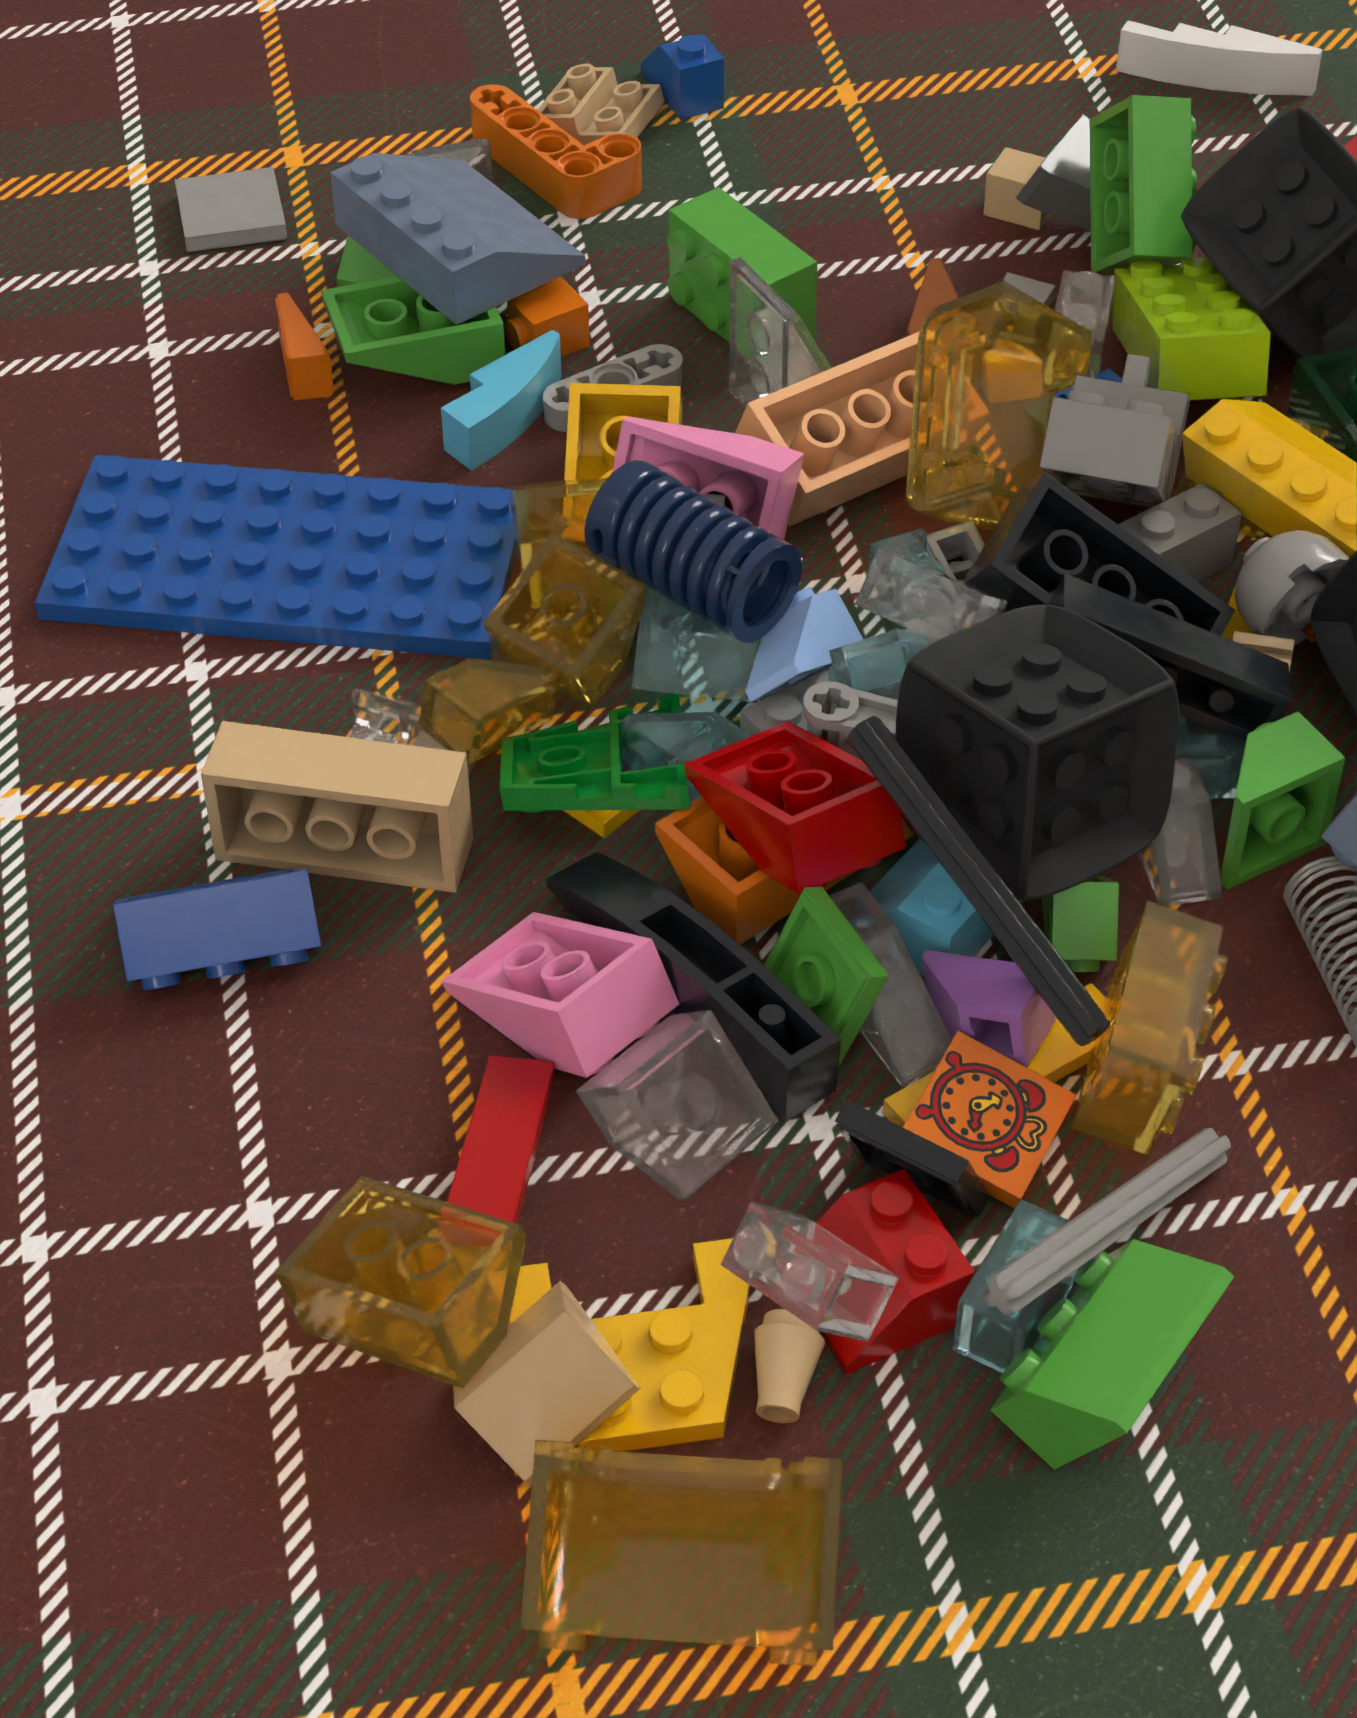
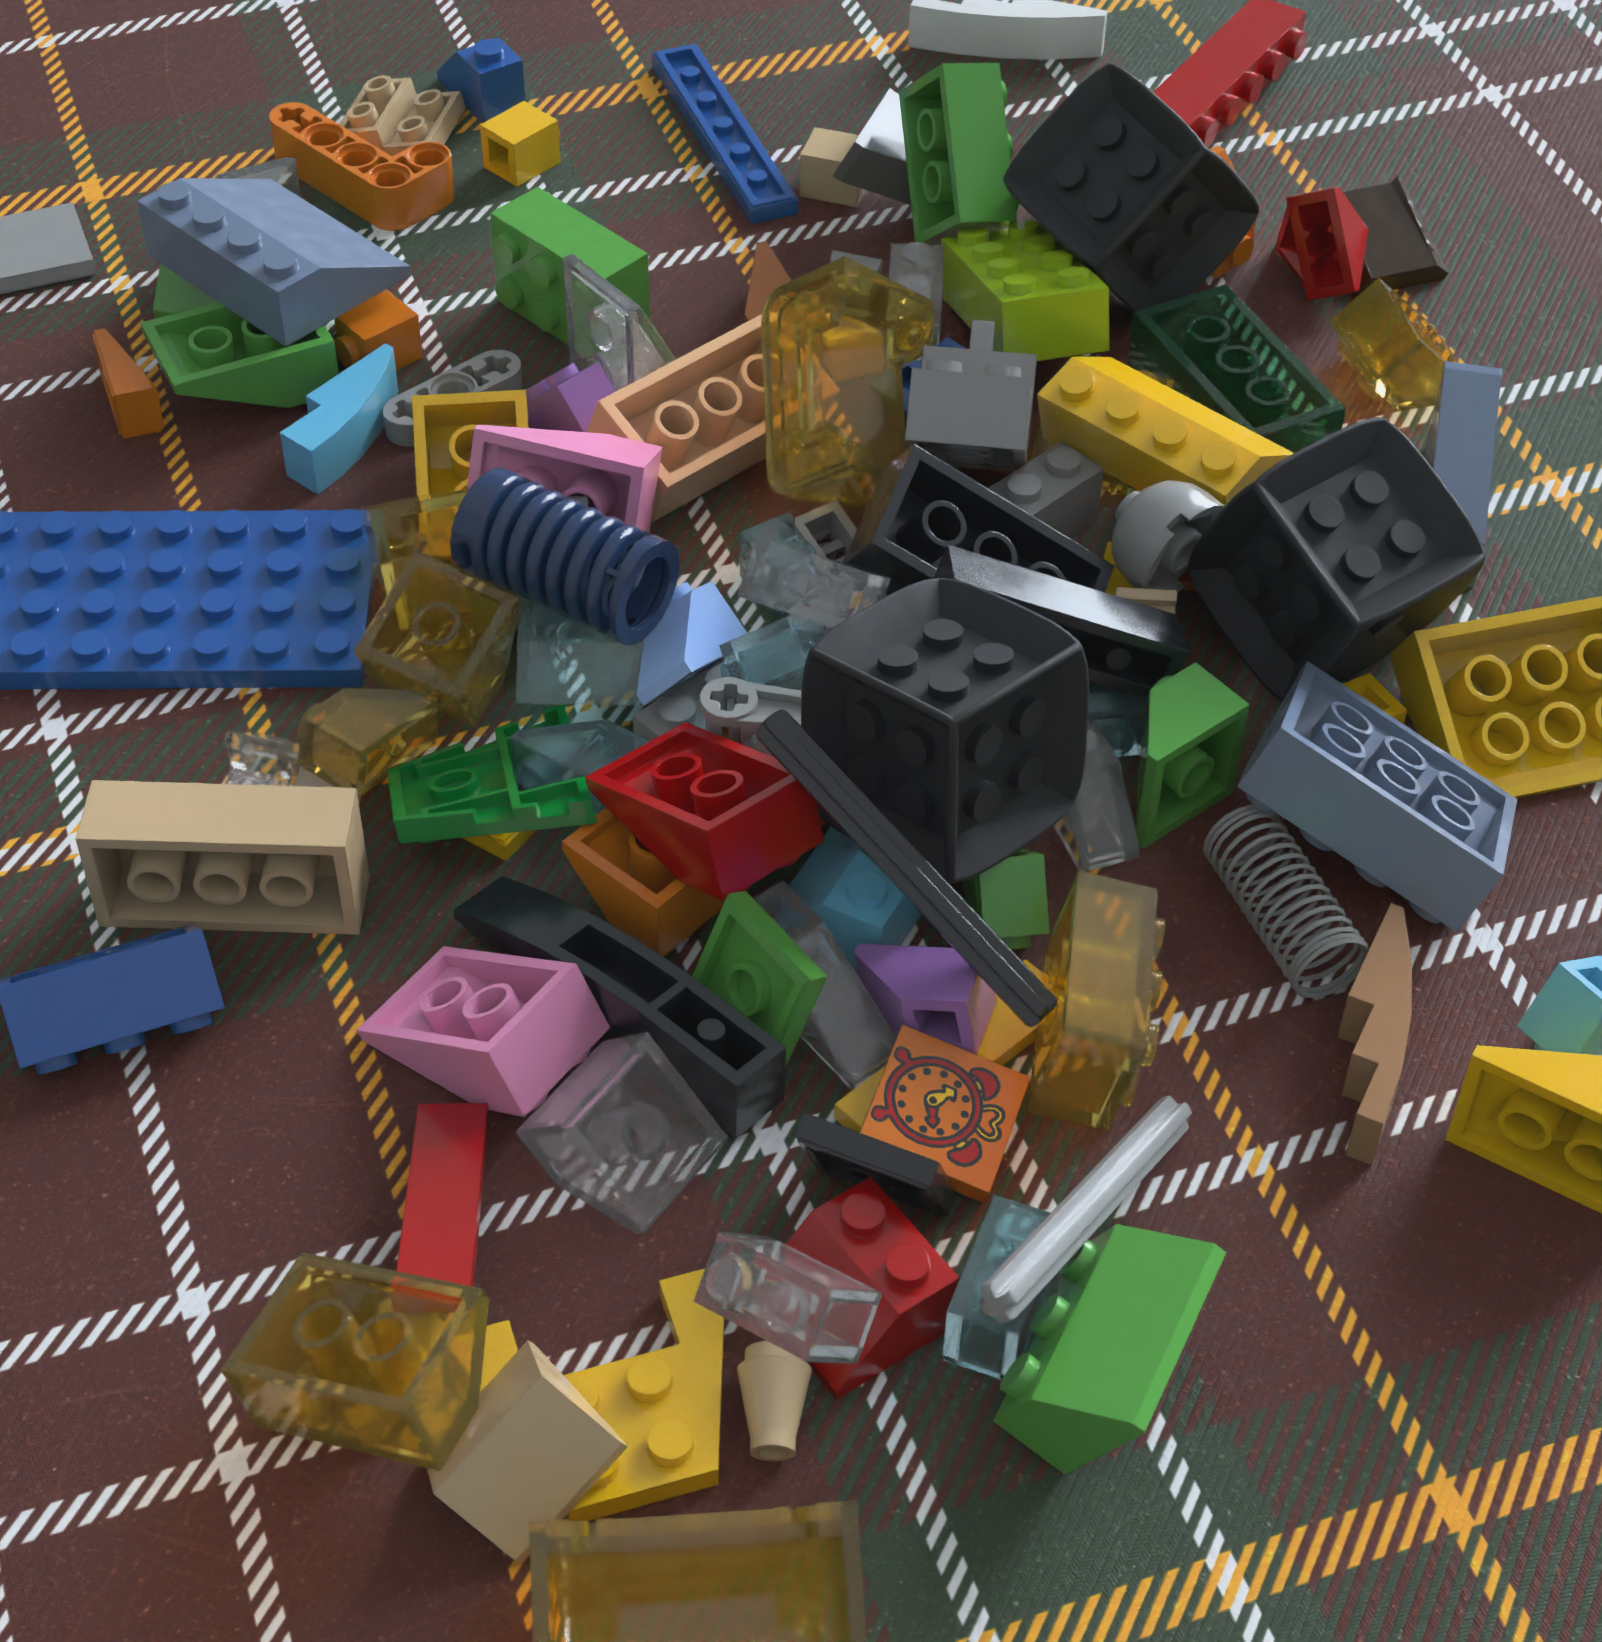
camera: 10 degrees left, 0 degrees up
(712, 141) = (520, 143): none -> yellow brick
(721, 398) = (567, 398): none -> medium lavender slope
(917, 147) = (725, 134): none -> blue tile

